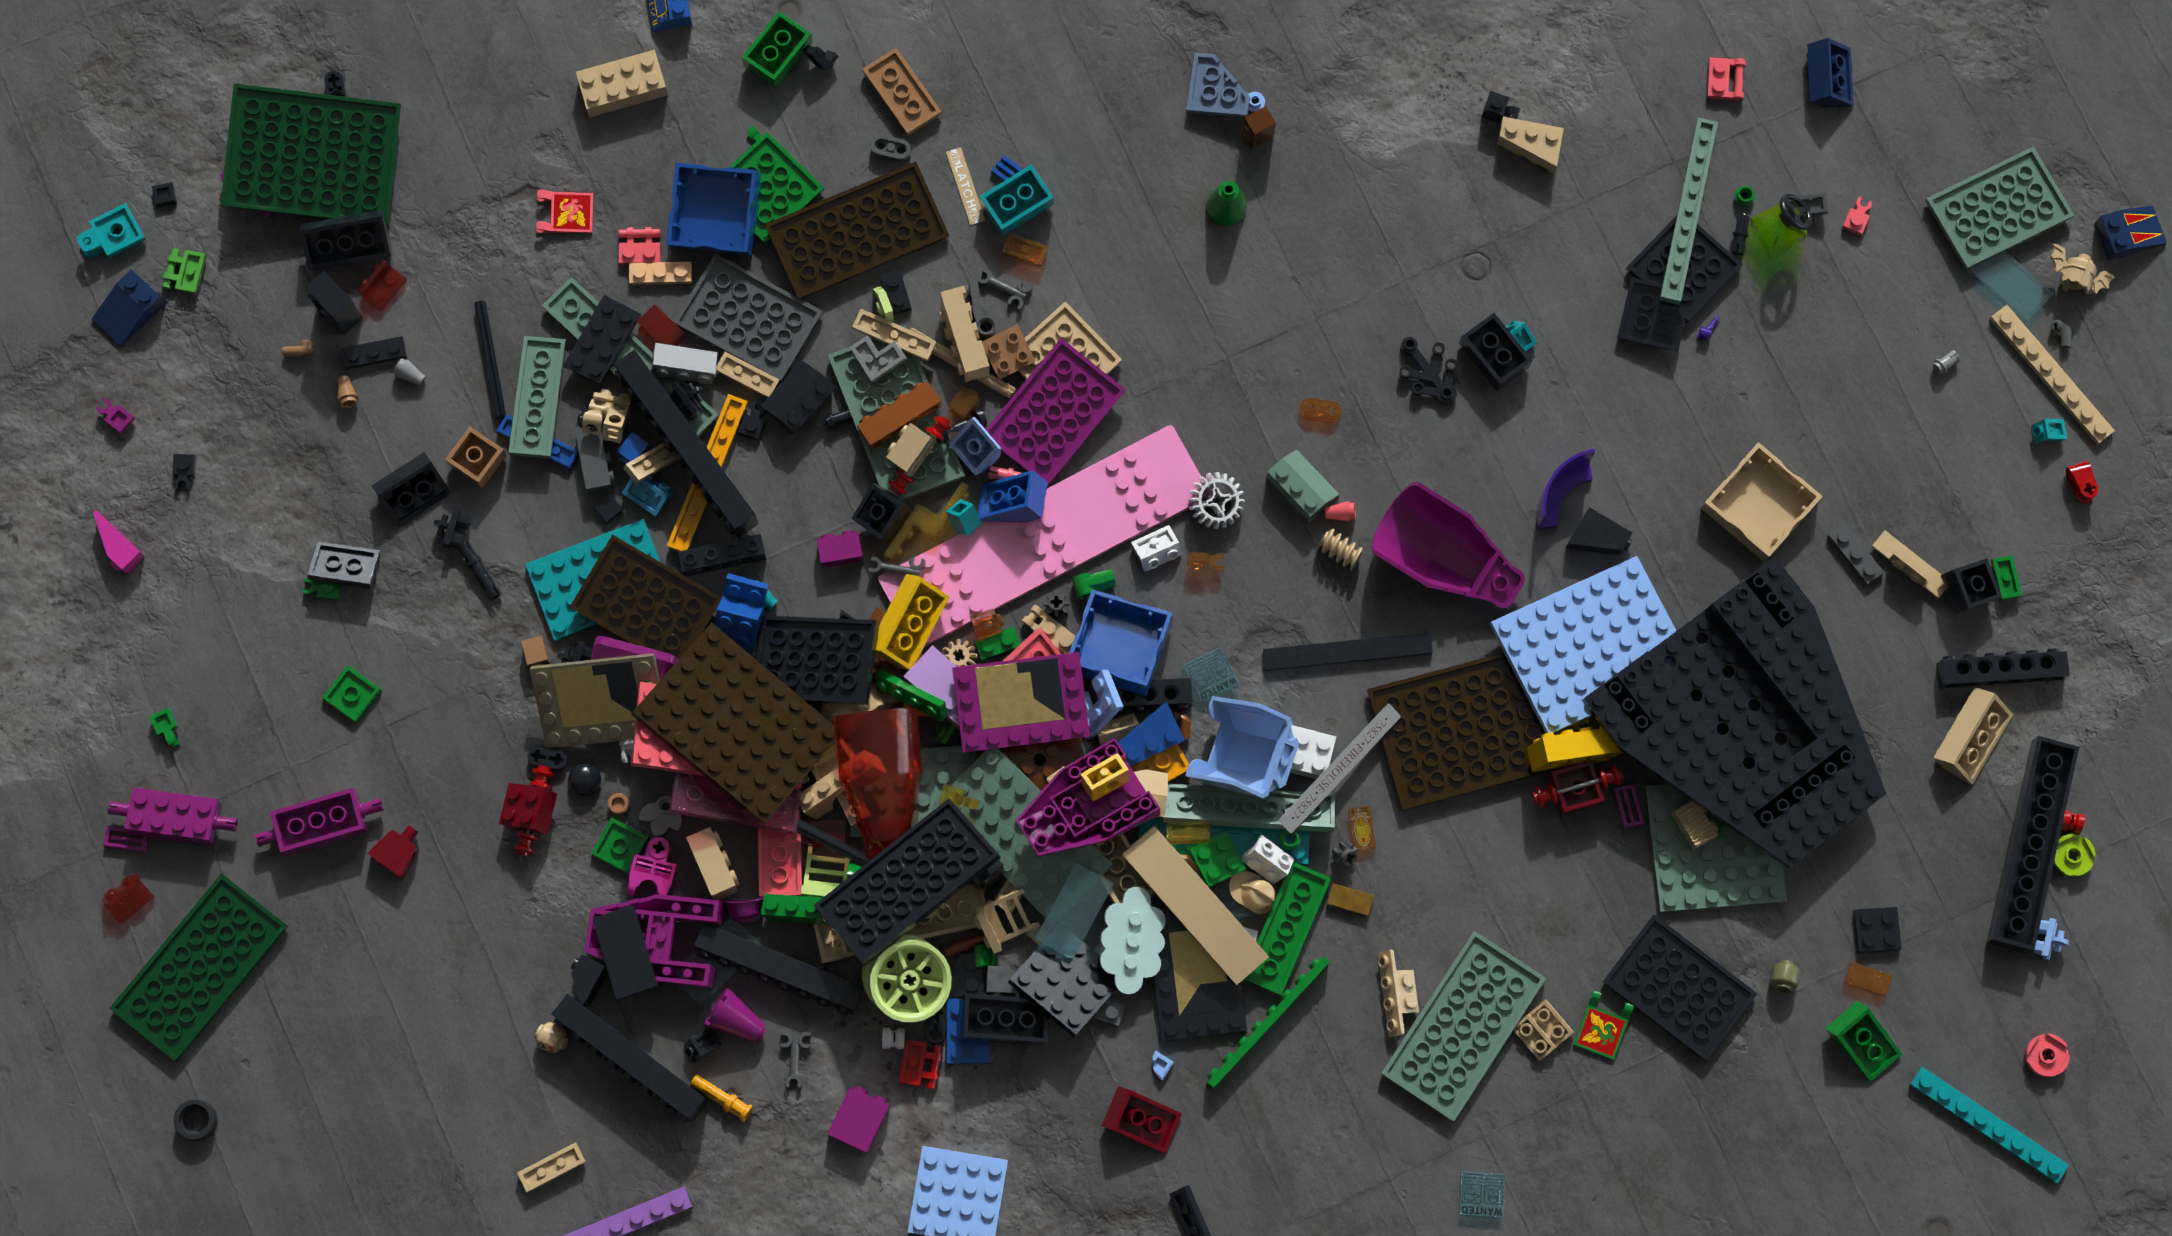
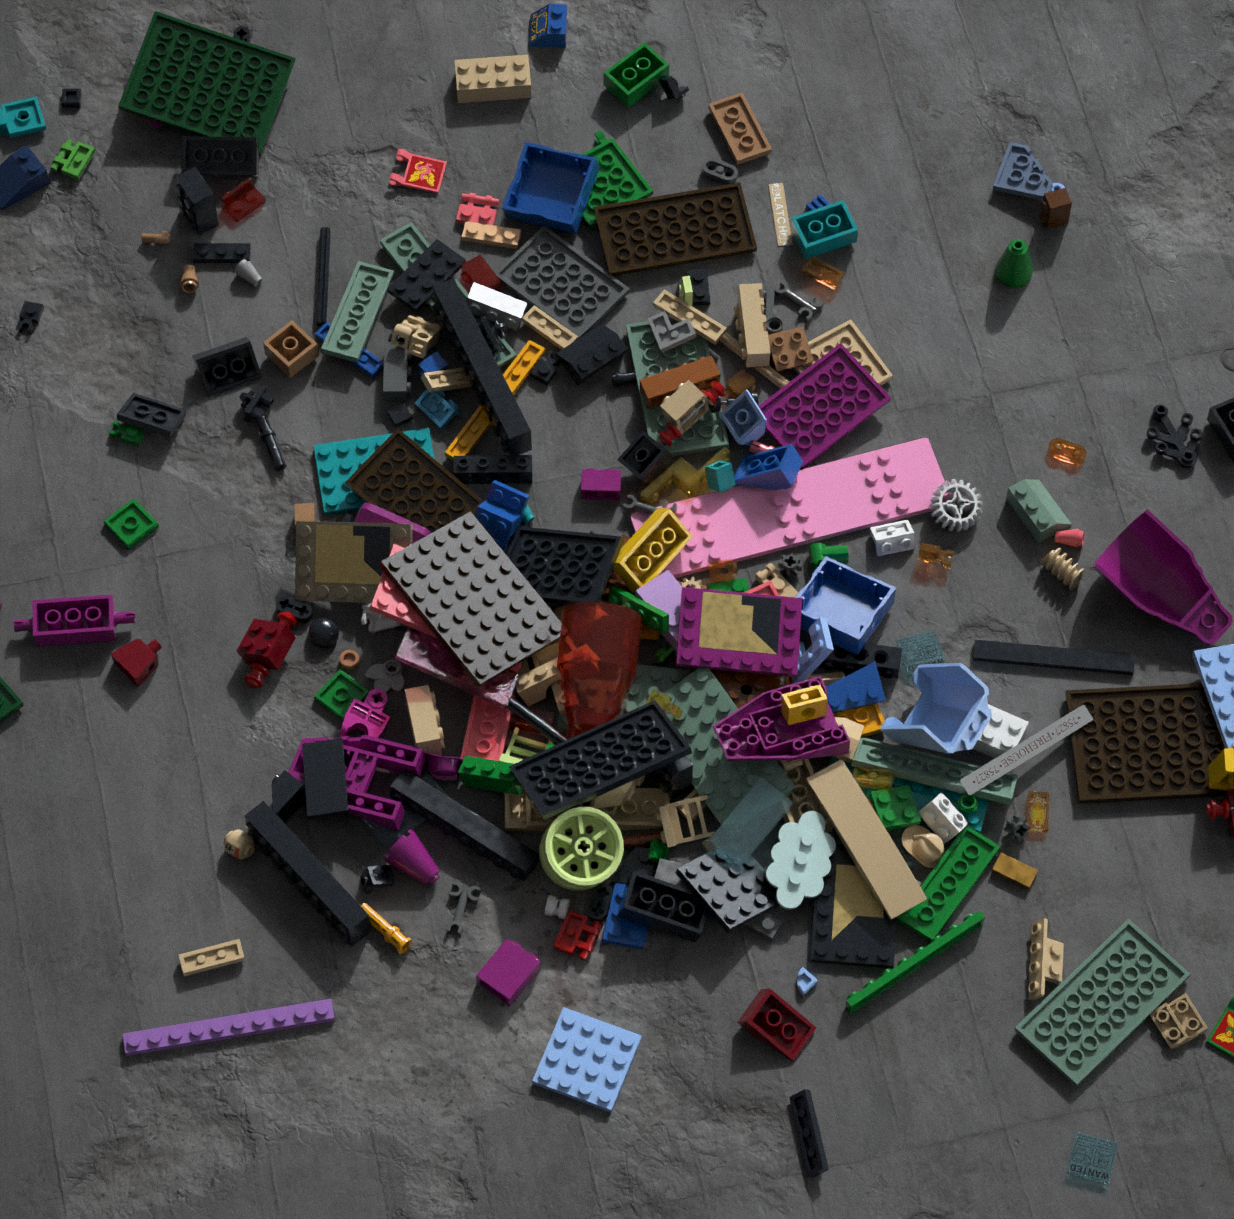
camera: 15 degrees right, 15 degrees down
(1185, 723) = (887, 683): dark orange arm -> none

